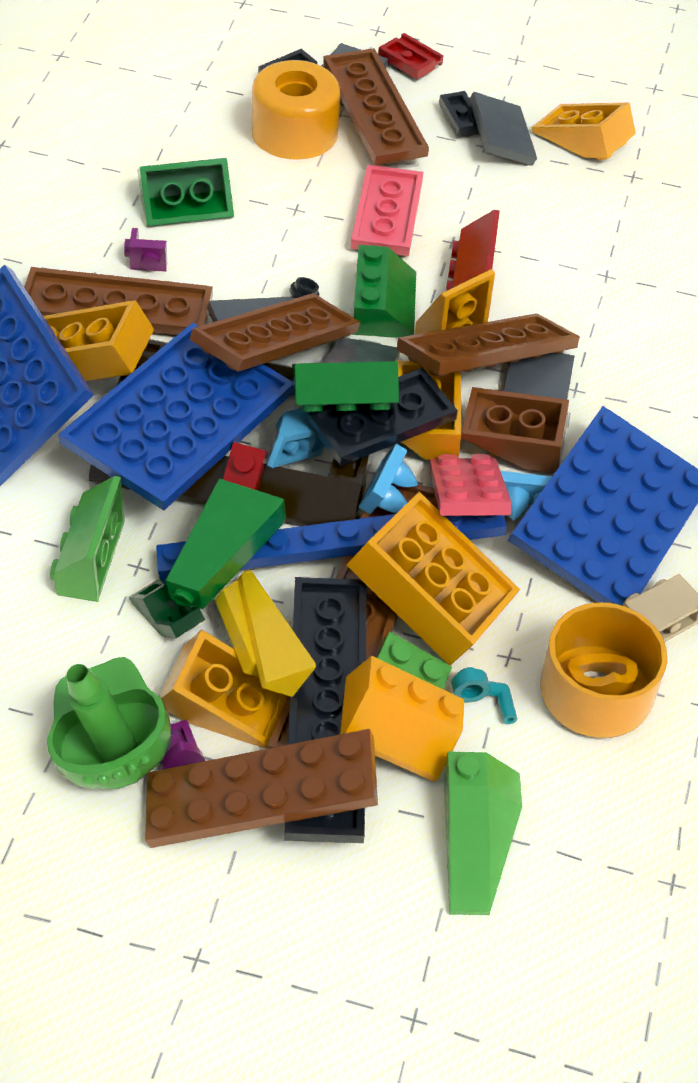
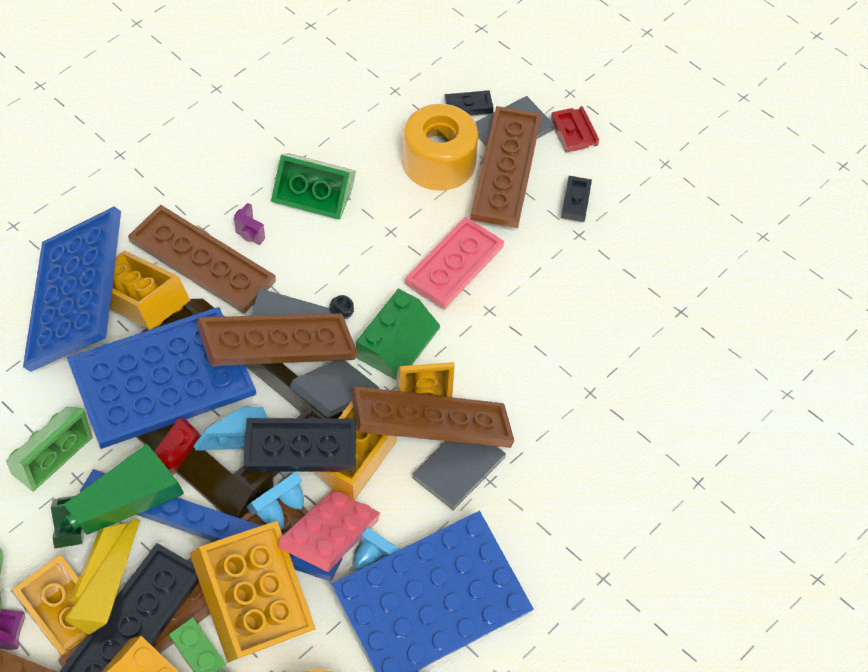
camera: 30 degrees right, 5 degrees up
(345, 385) = (281, 408): green slope -> none
(474, 249) = (481, 342): red slope -> none
(502, 128) = (597, 226): dark grey tile -> none
(517, 427) = (408, 496): dark orange slope -> none
(588, 128) = (669, 254): light orange slope -> none

